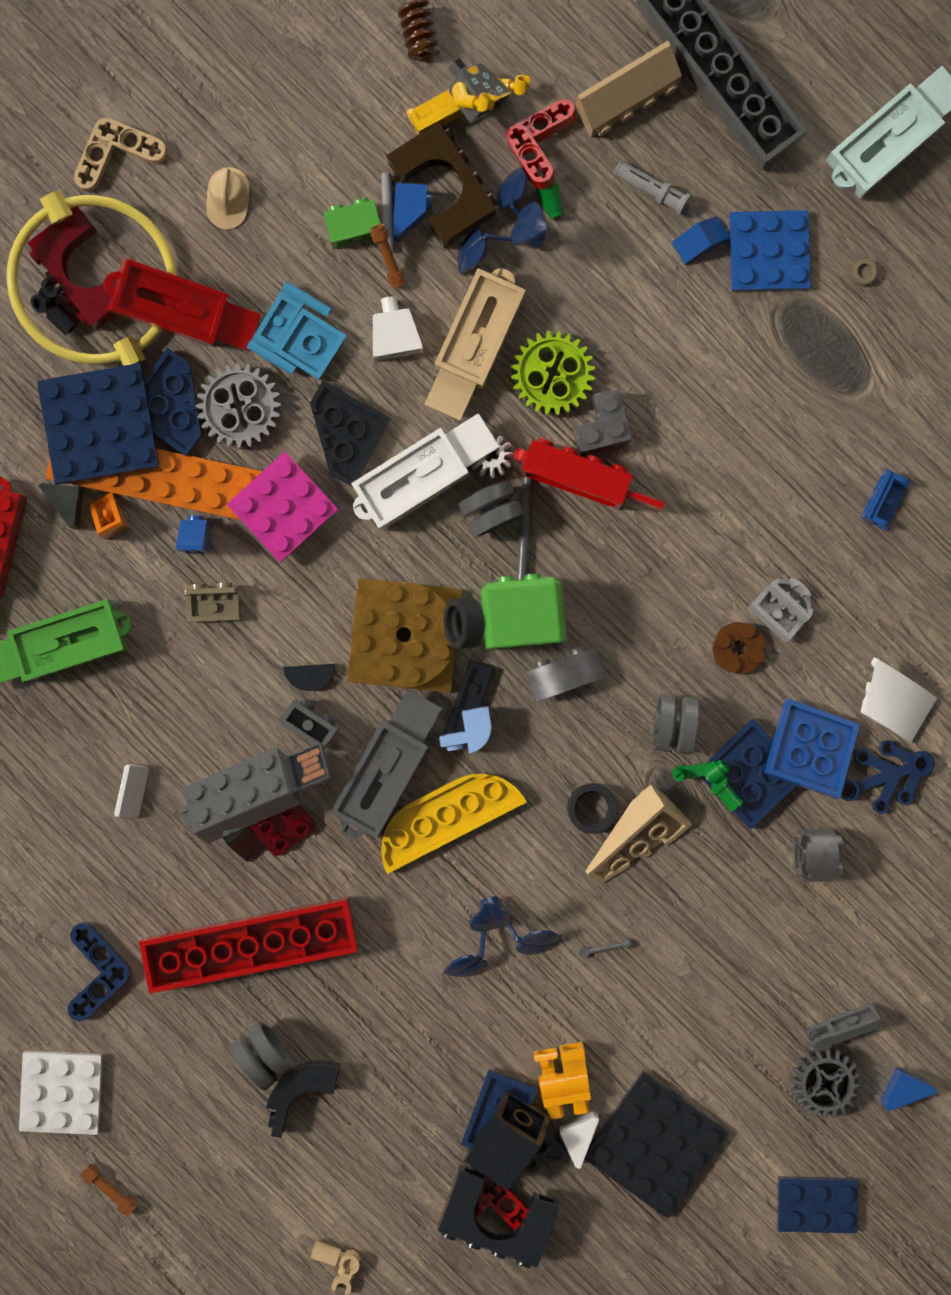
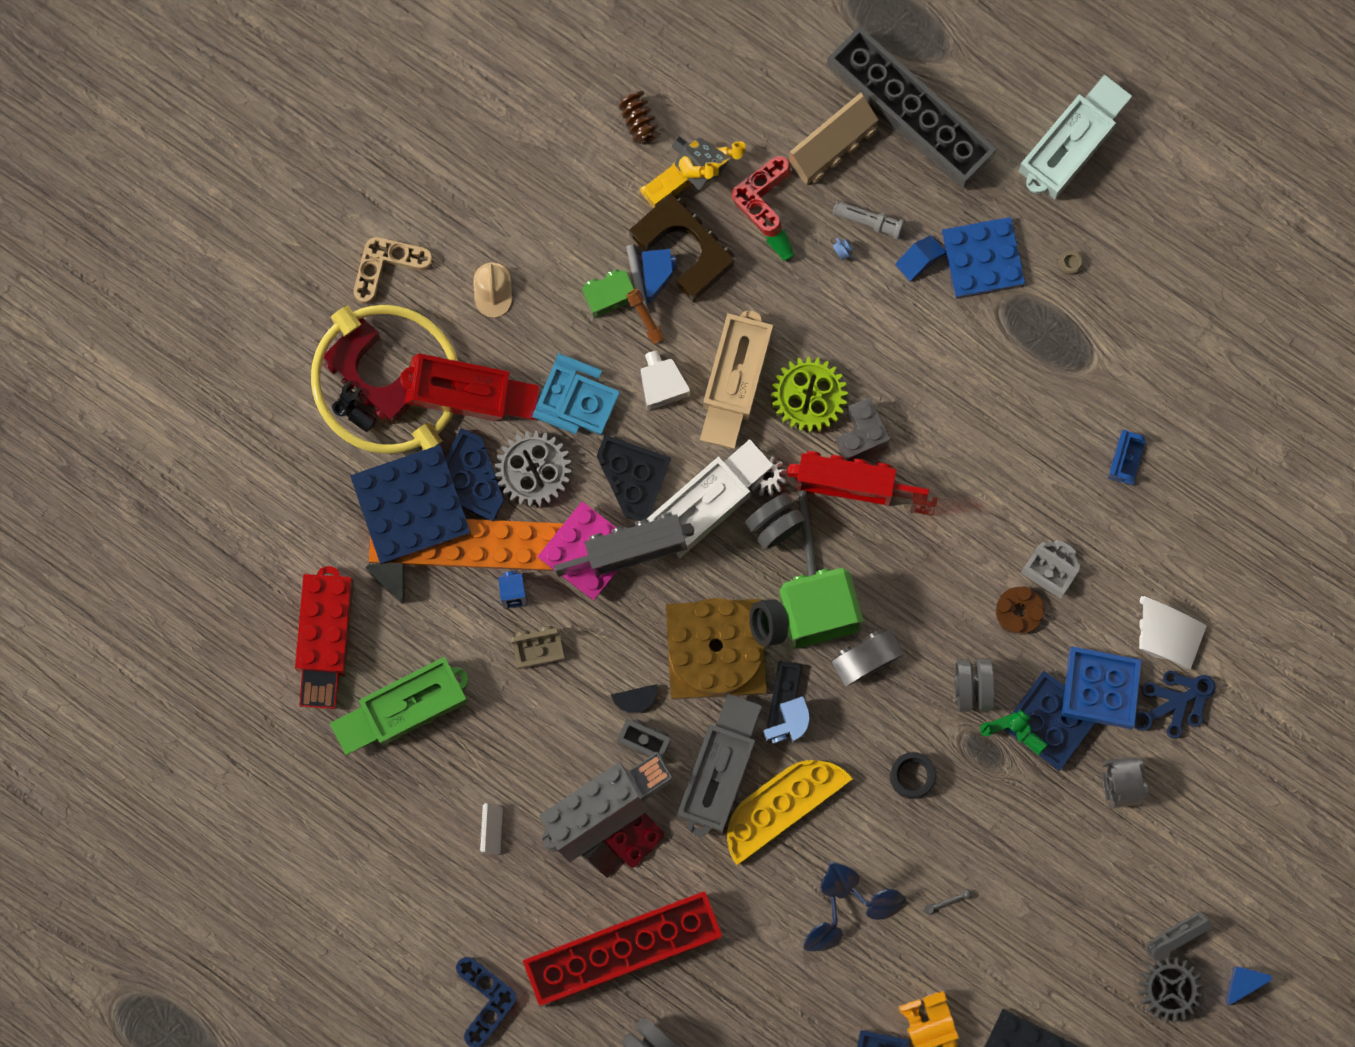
camera: 10 degrees left, 10 degrees down
(108, 516) = (431, 586): orange slope -> none
(327, 513) = (631, 546): none -> dark grey piece
(528, 229) = (766, 272): dark blue plant -> none
(618, 216) = (843, 249): none -> medium blue plate
(643, 826) = (961, 786): tan wedge -> none
(655, 518) = (923, 503): none -> clear red tile

